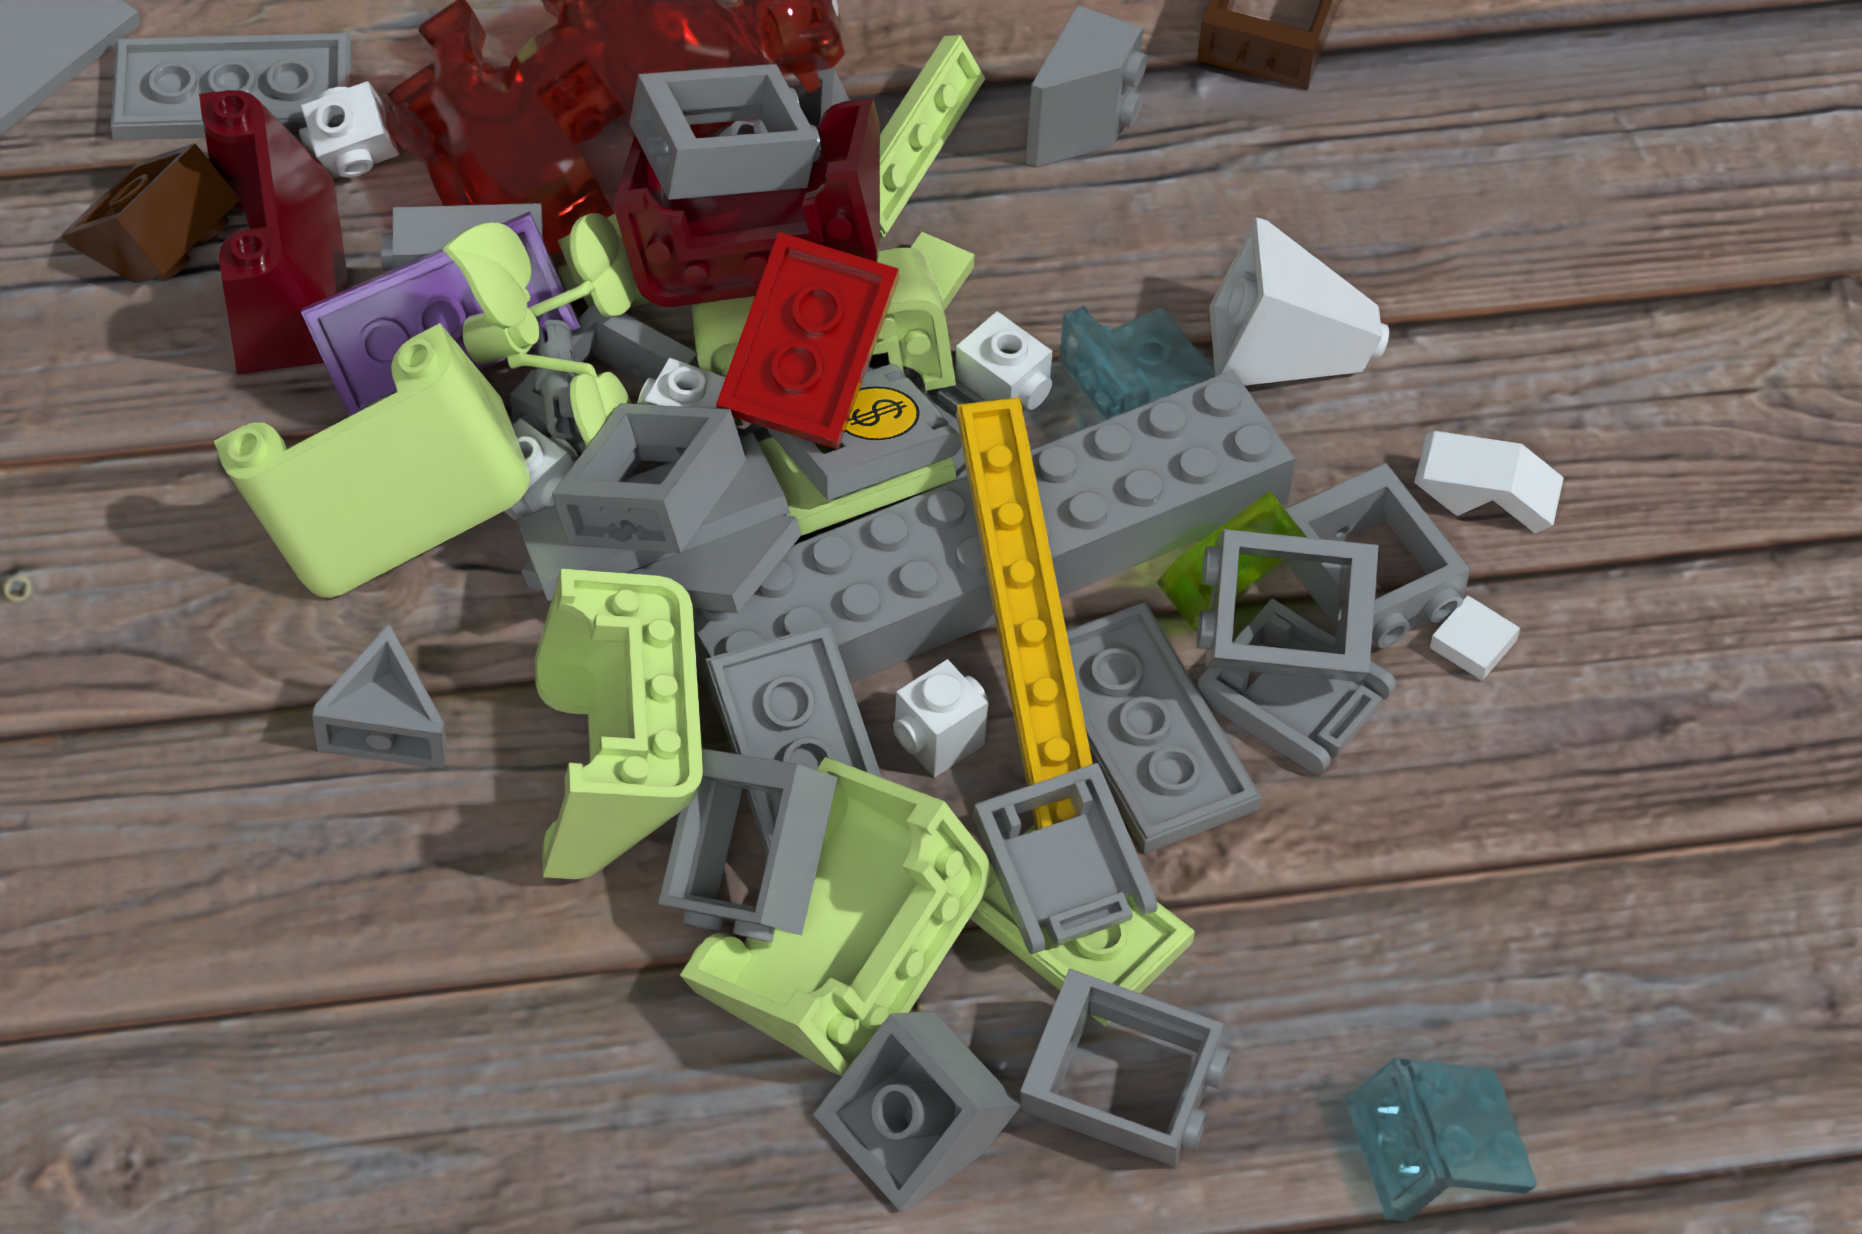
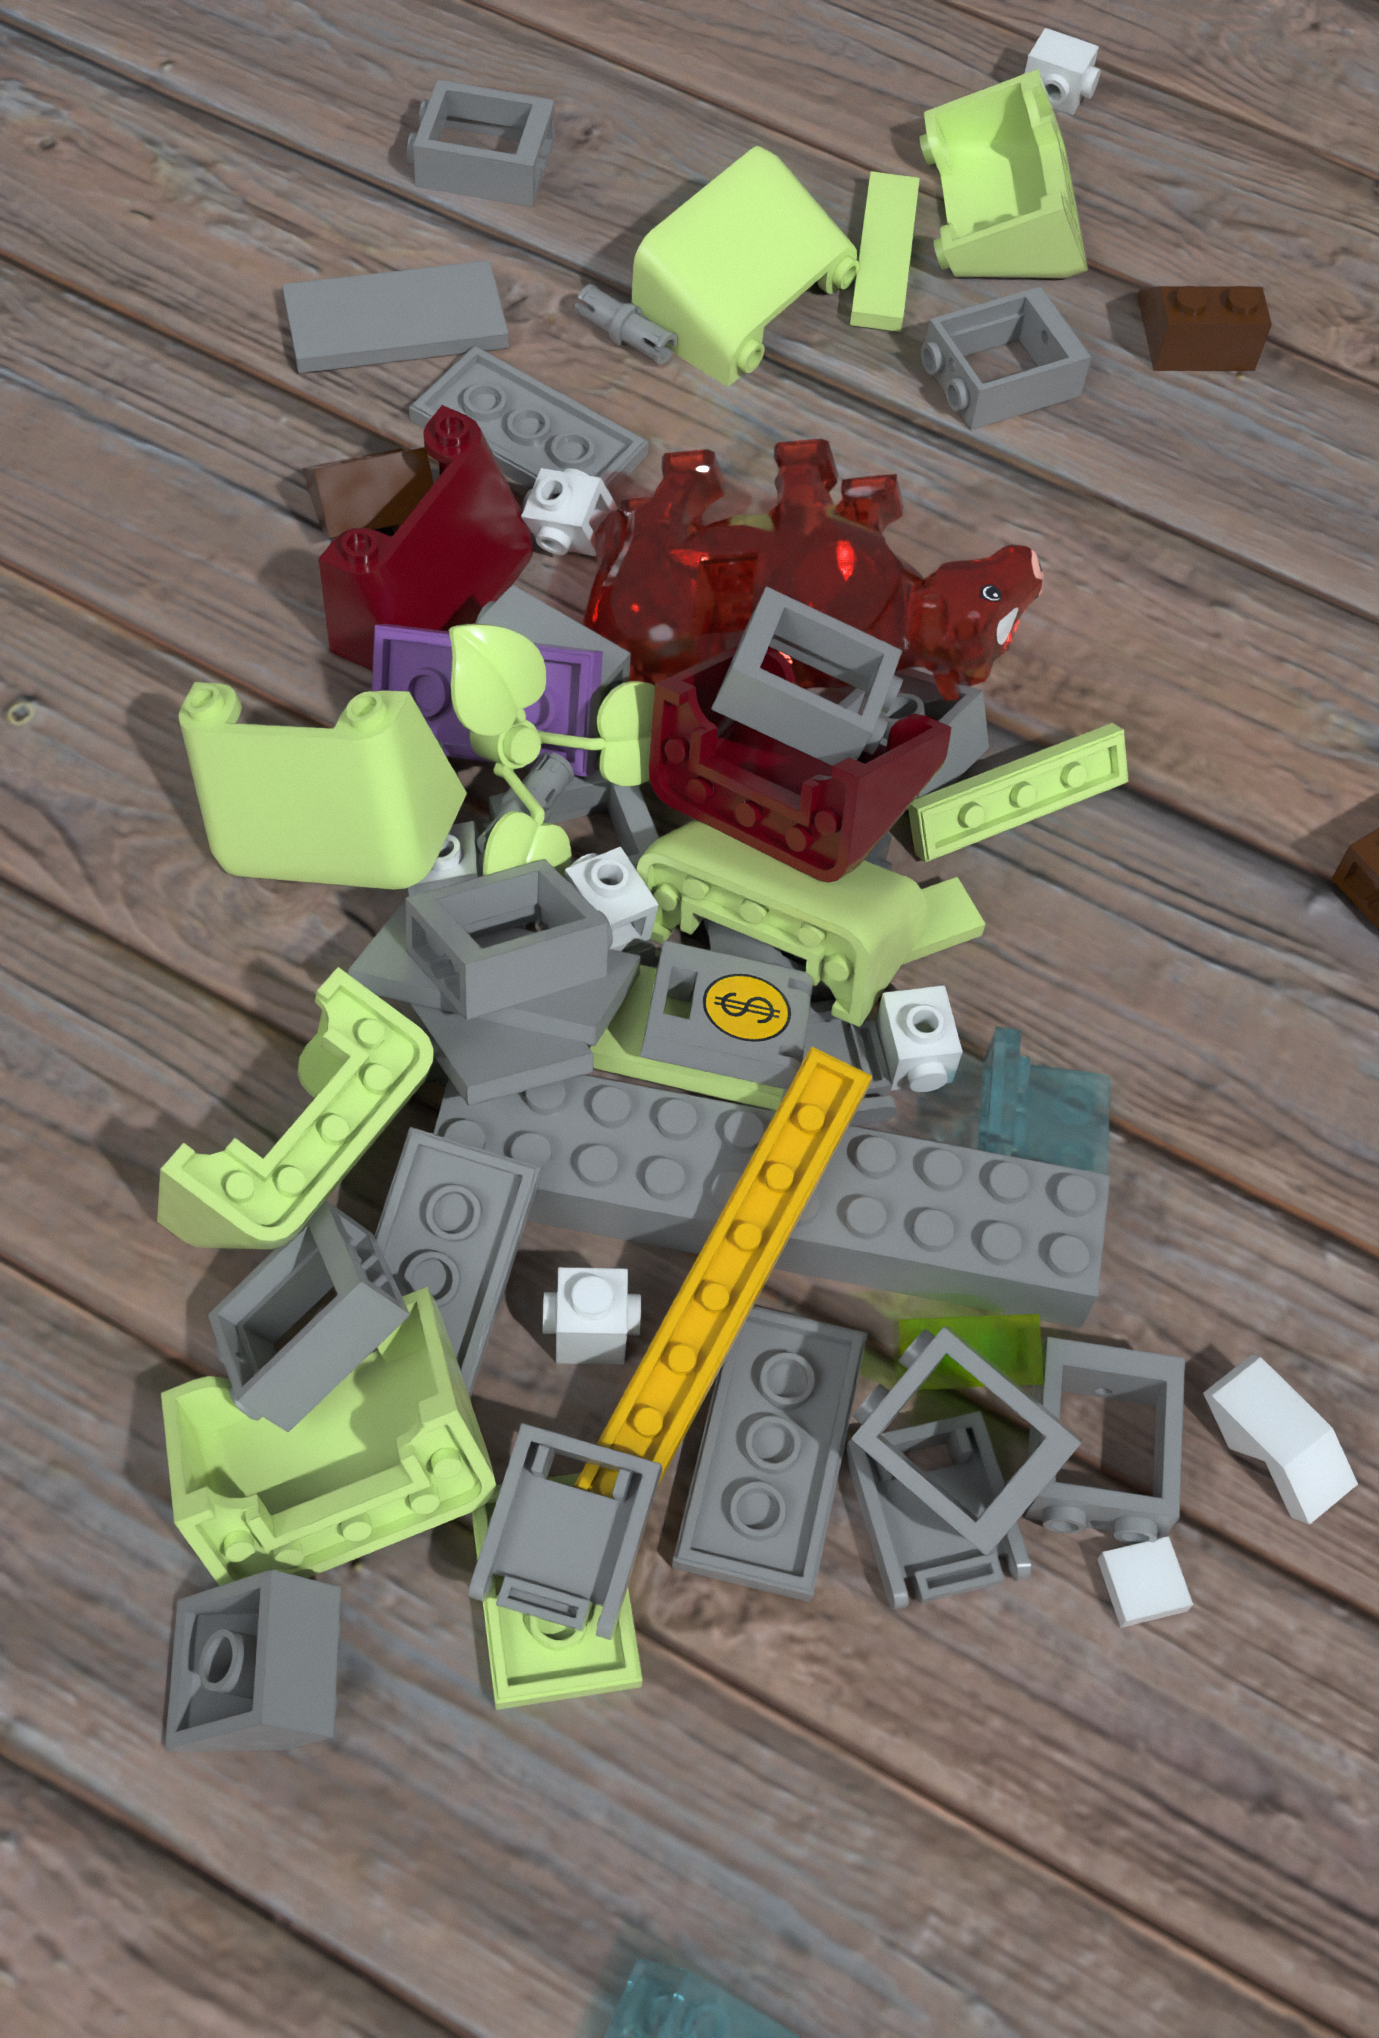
camera: 35 degrees right, 5 degrees up
(381, 710) = (158, 989): light grey slope -> none
(808, 340) = (721, 904): red plate -> none
(1085, 88) = (1192, 839): light grey slope -> none
(1089, 995) = (405, 1712): light grey window -> none
(1290, 315) = (1214, 1161): white slope -> none

